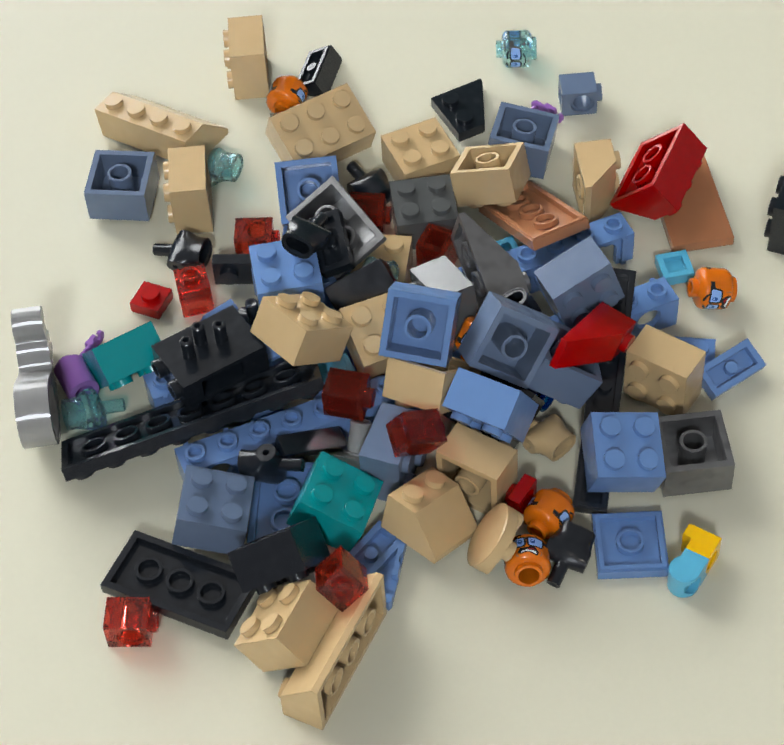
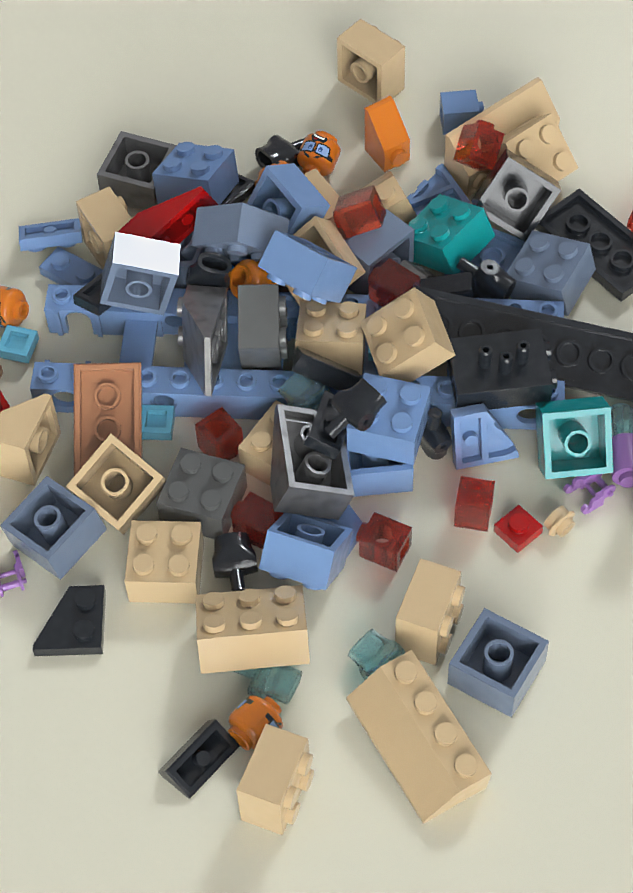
camera: 155 degrees left, 5 degrees up
(117, 312) = (560, 522): none -> tan plate
(185, 251) = (466, 558): black piece -> none
(232, 269) = (412, 511): black plate -> none
(403, 680) = (457, 108): none -> medium blue brick
(463, 600) = (386, 135): none -> orange slope
(494, 538) = (338, 163): tan tile -> none
(533, 680) = (370, 62): none -> tan brick
(630, 545) = (239, 137): medium blue tile -> none
(698, 556) = (197, 110): leg -> none

